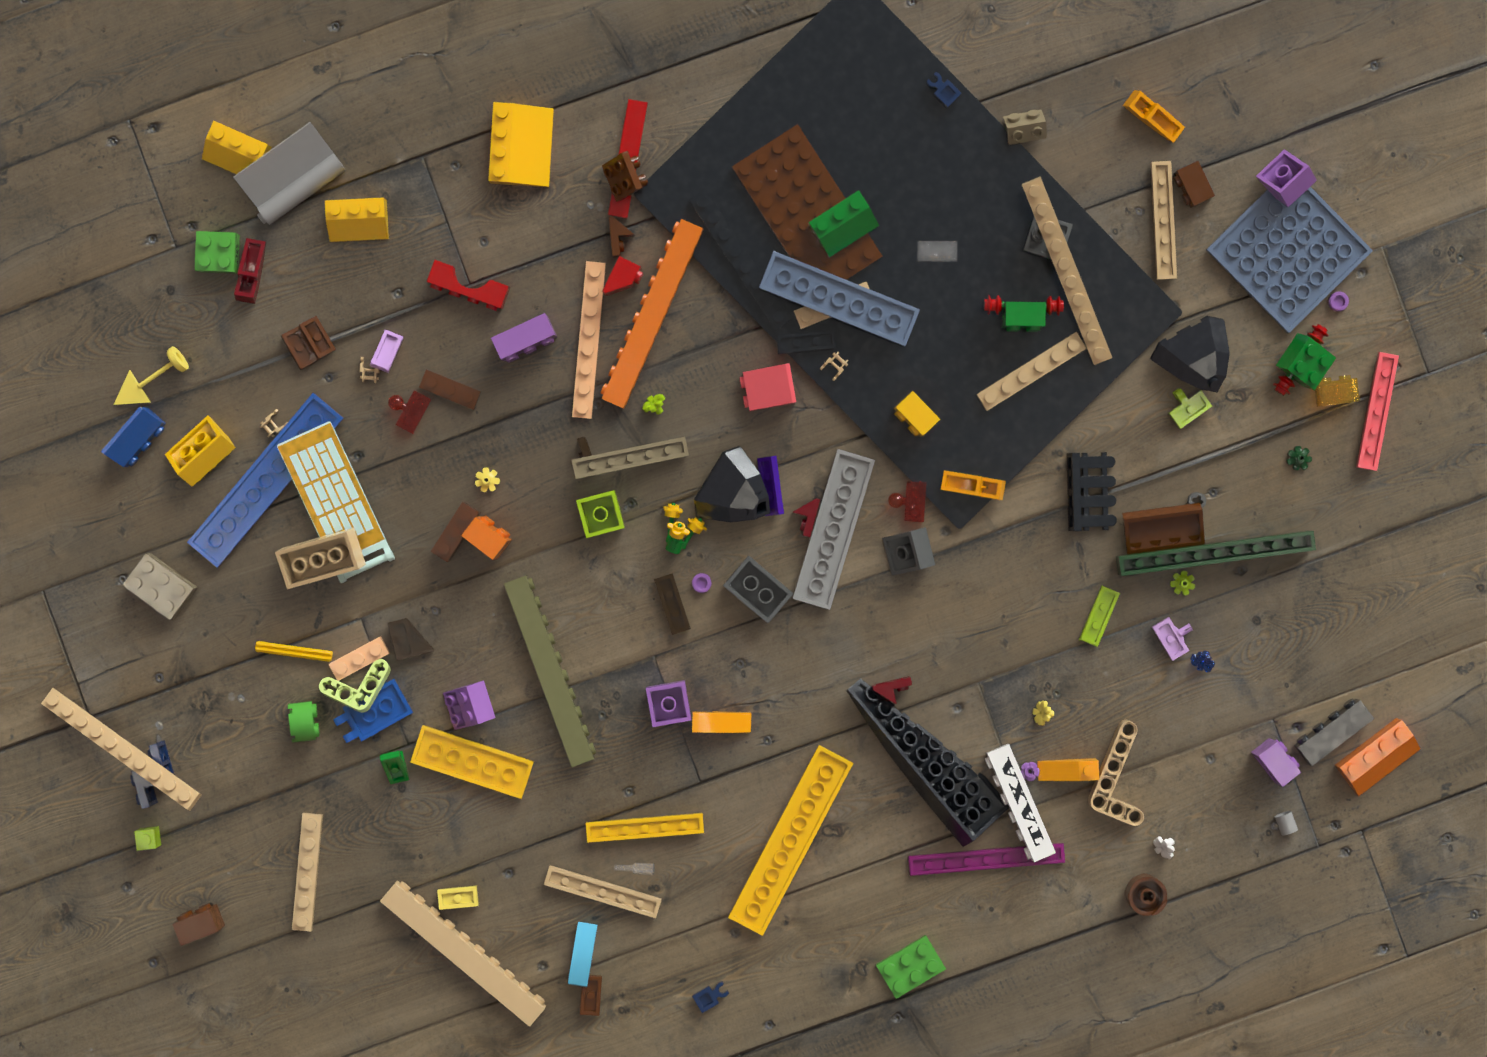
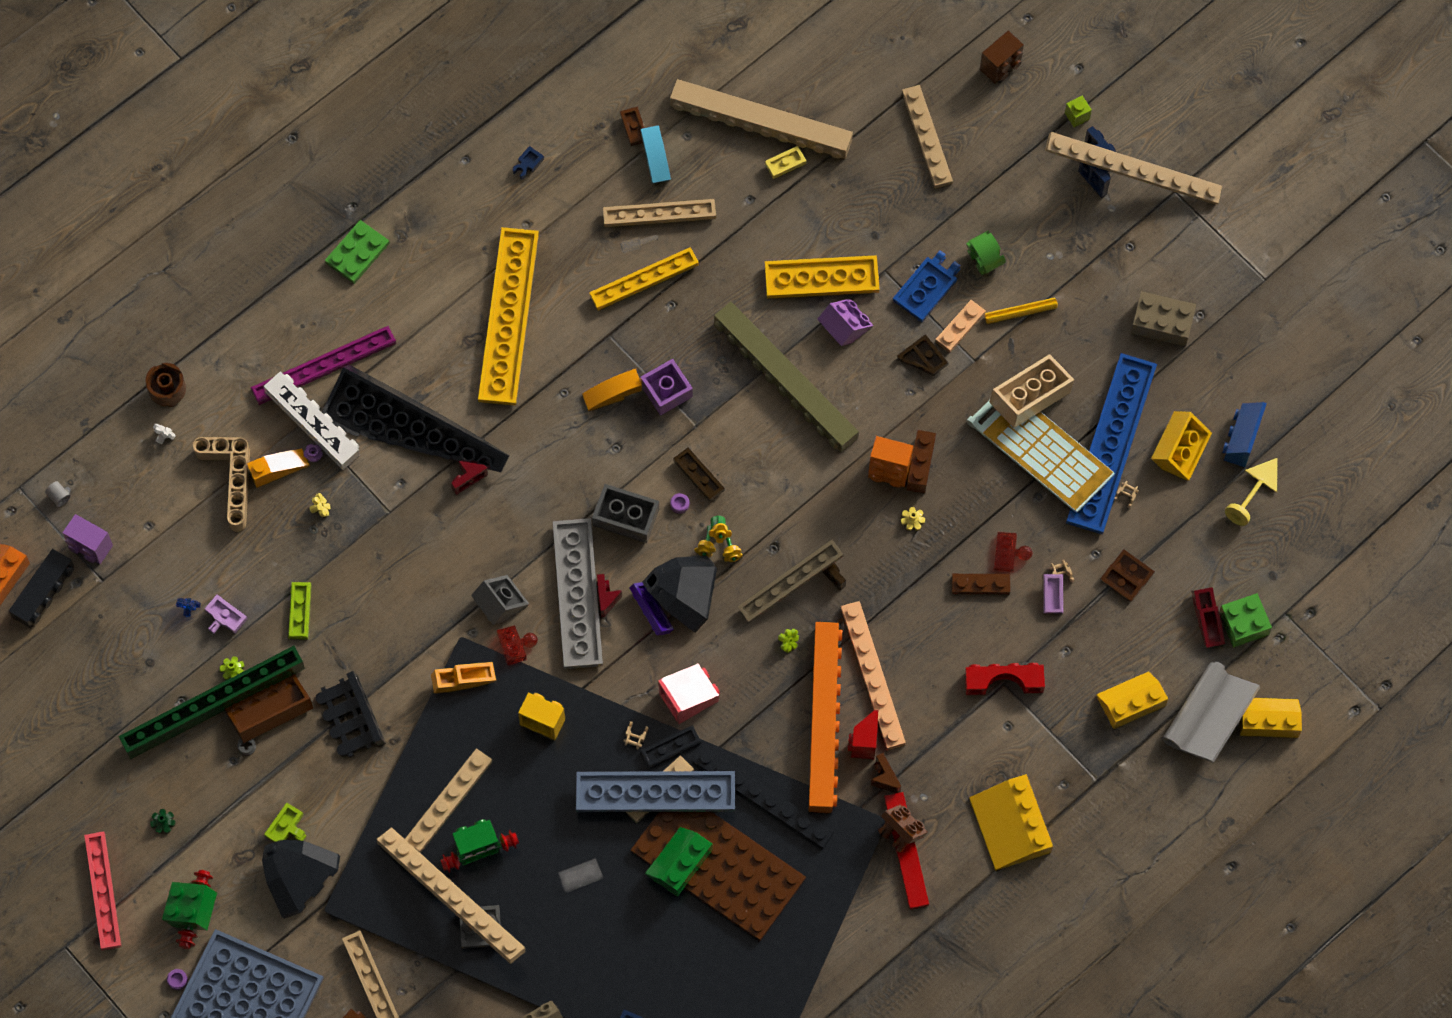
camera: 155 degrees right, 20 degrees down
(356, 695) = (949, 291): yellowish green beam -> none
(395, 766) = (889, 248): green slope -> none
(524, 338) = (932, 649): medium lavender brick -> none
(600, 514) = (796, 524): lime brick -> none
(1337, 392) = (148, 893): clear yellow brick -> none

